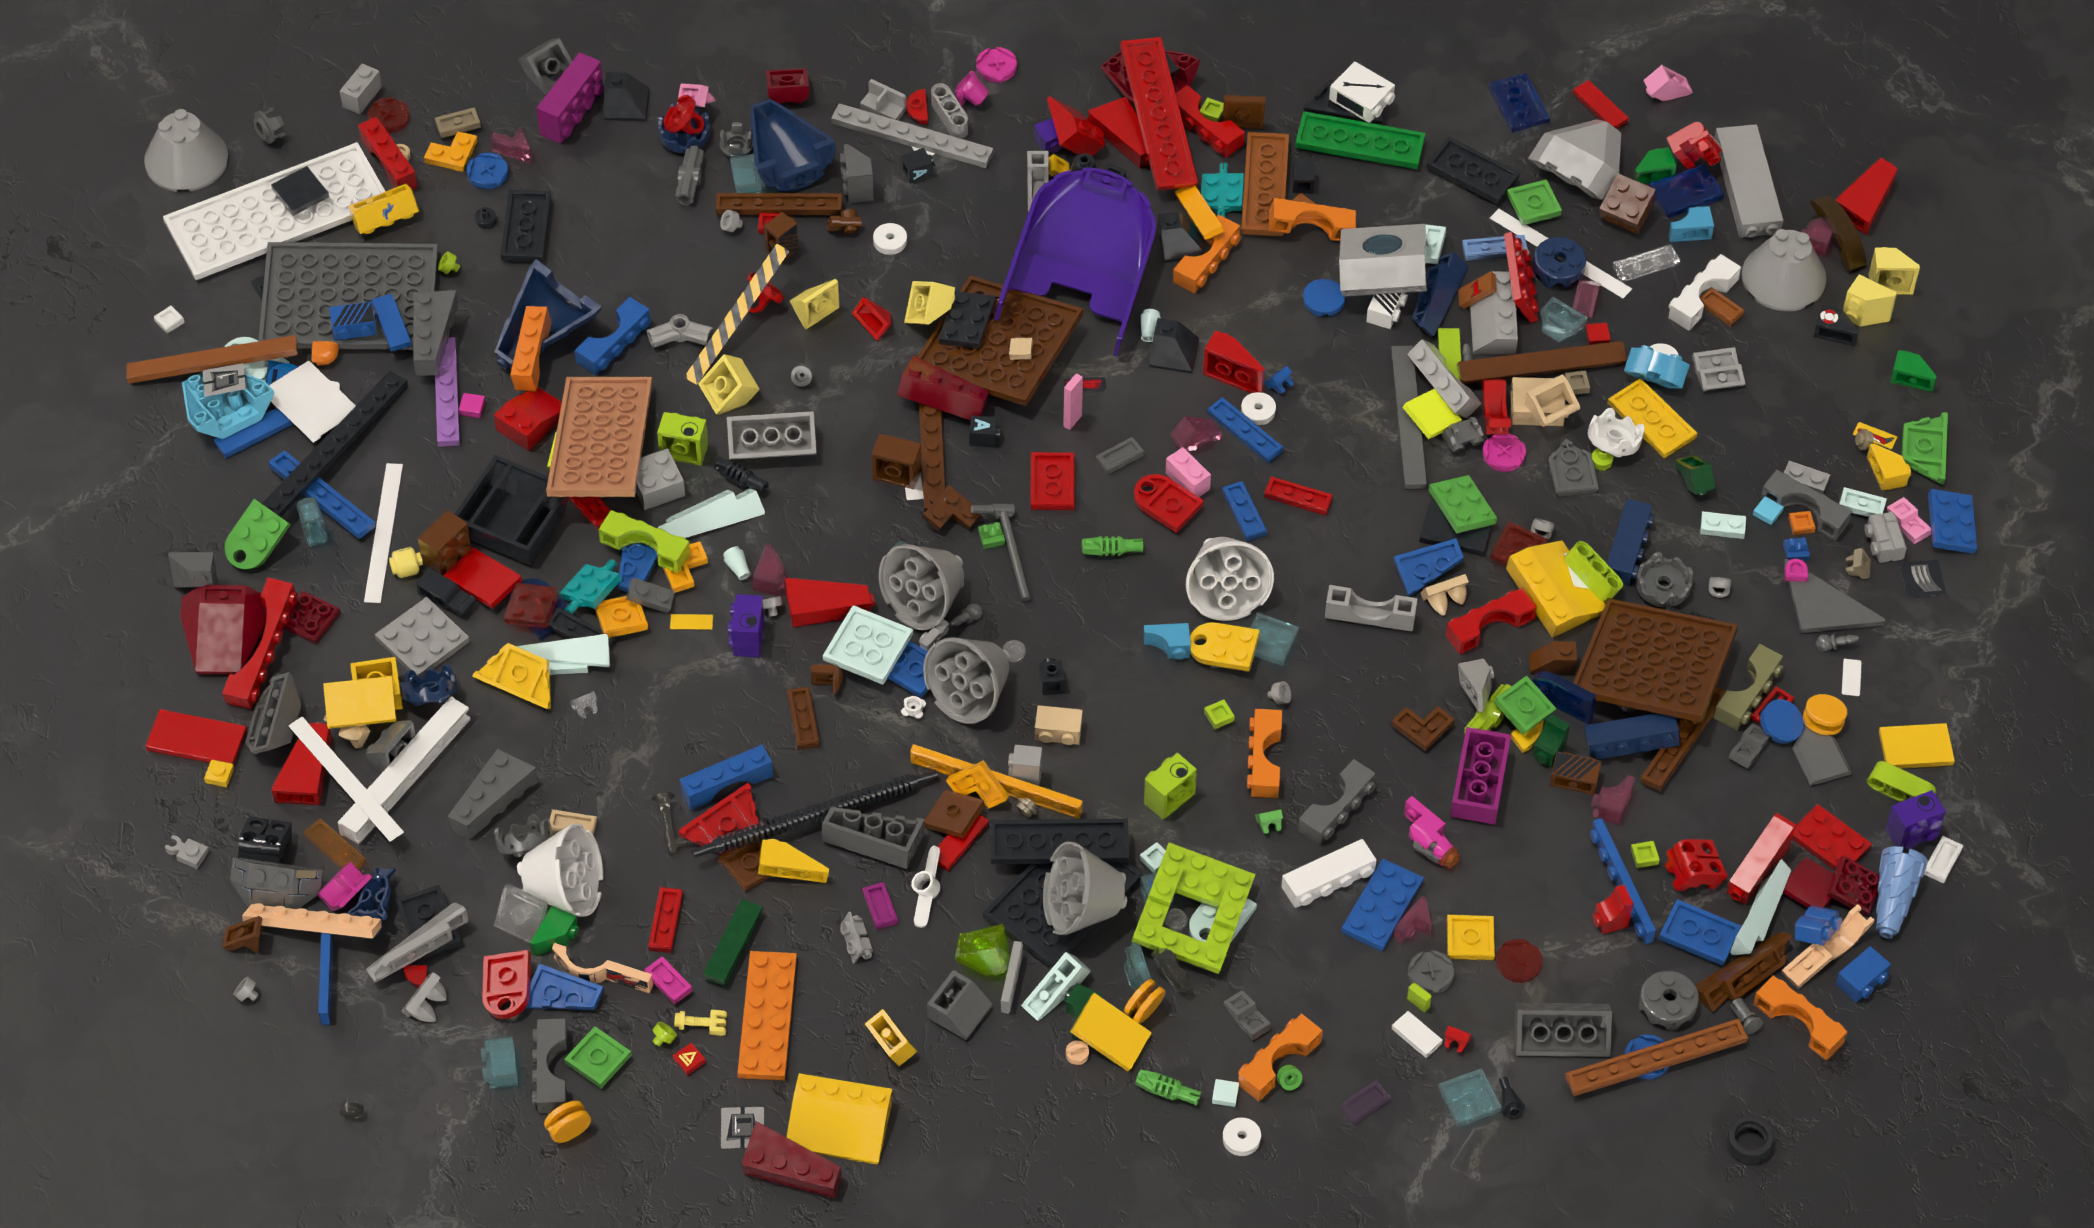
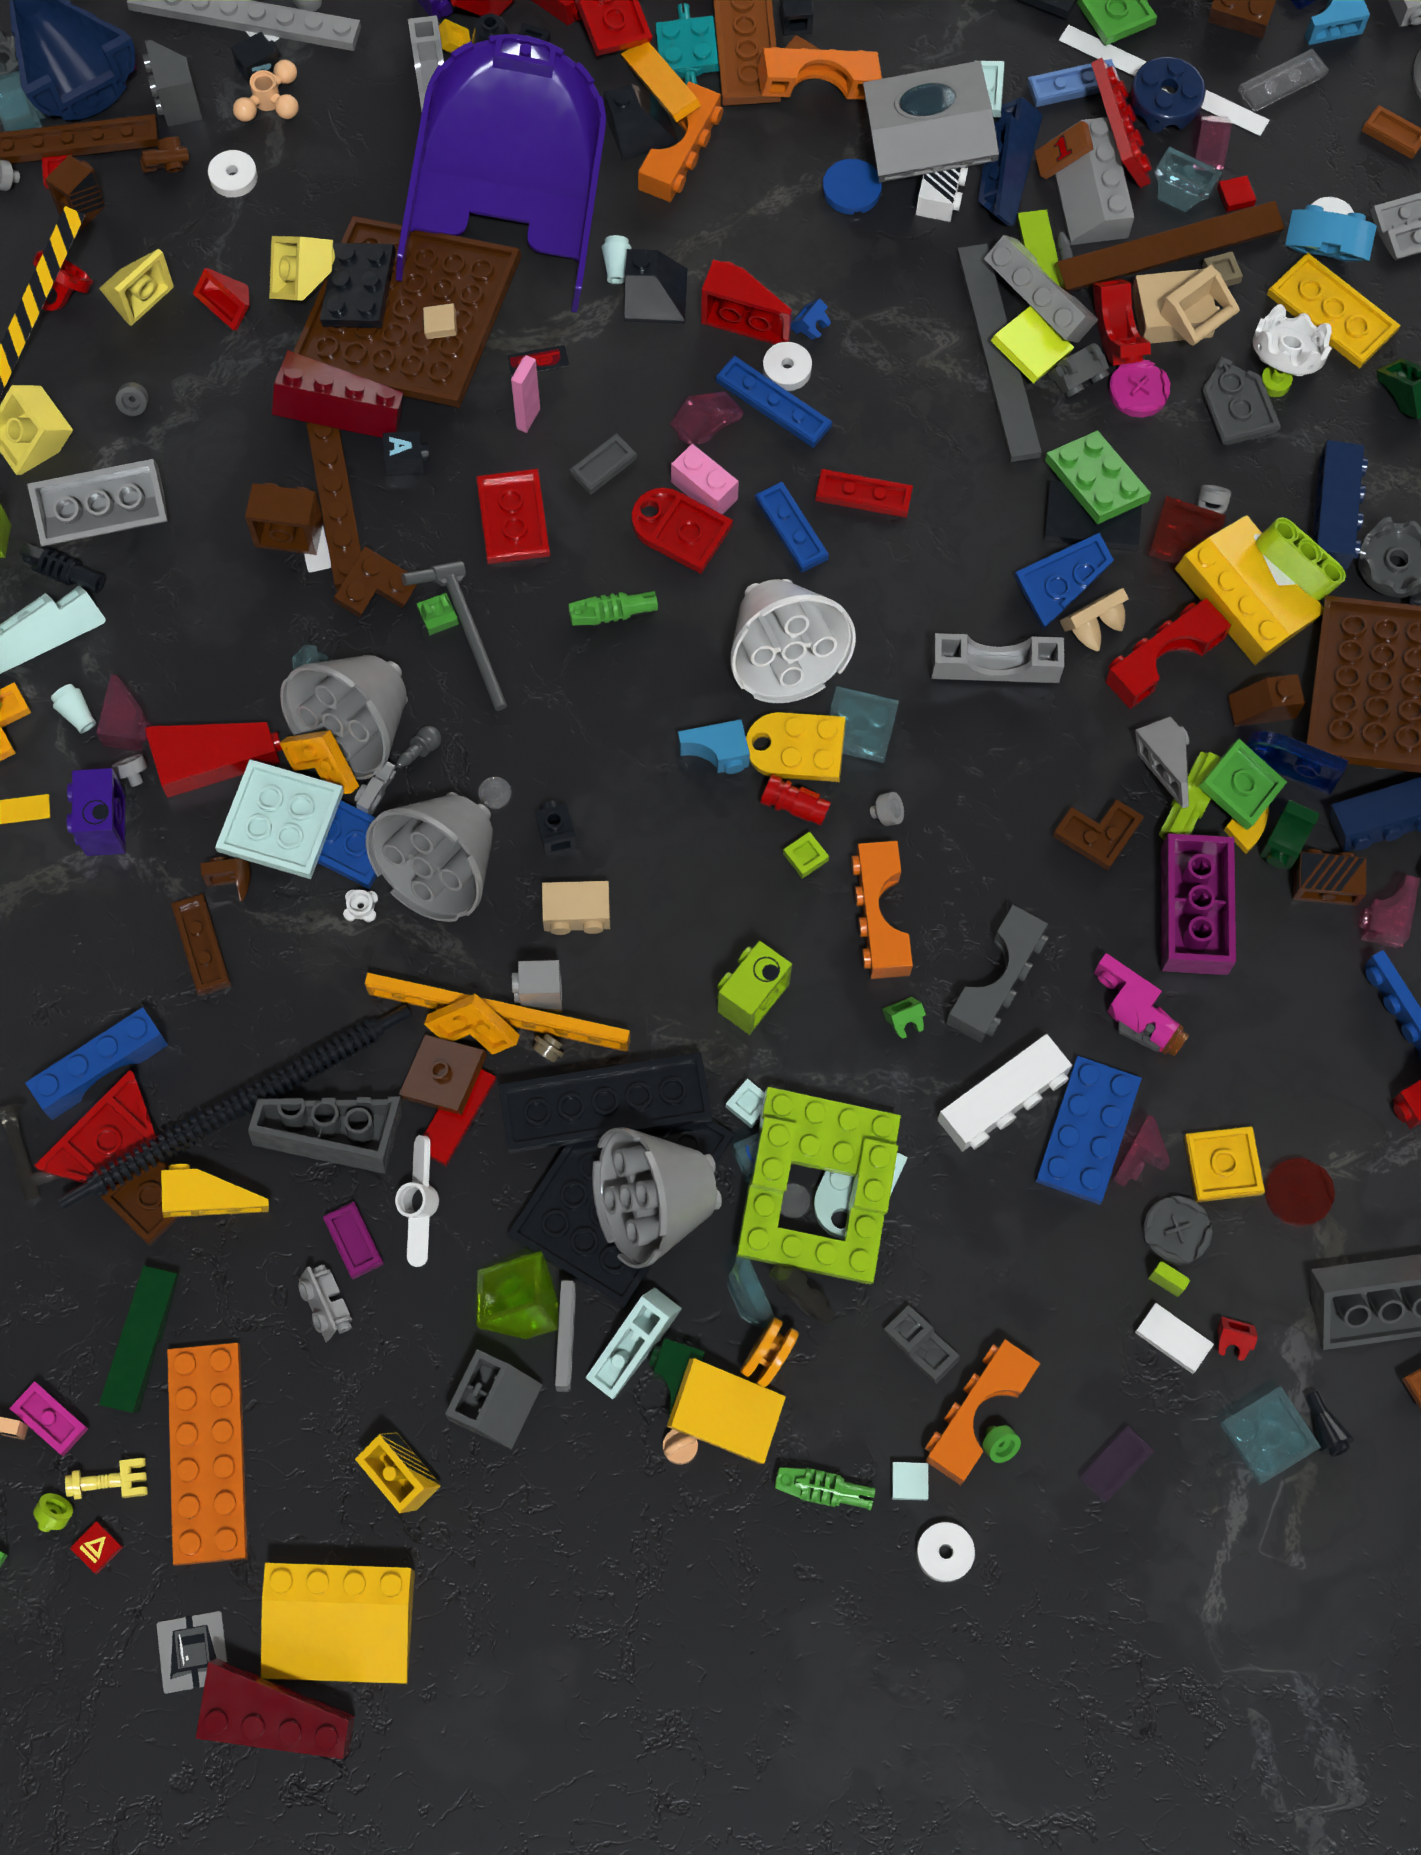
camera: 10 degrees left, 15 degrees up
(665, 920) = (34, 1312): red tile -> none
(900, 607) = (320, 752): none -> light orange plate
(921, 189) = (266, 93): none -> light nougat piece
(1219, 681) = (799, 802): none -> red axle
(1688, 308) = (1356, 137): white arch -> none

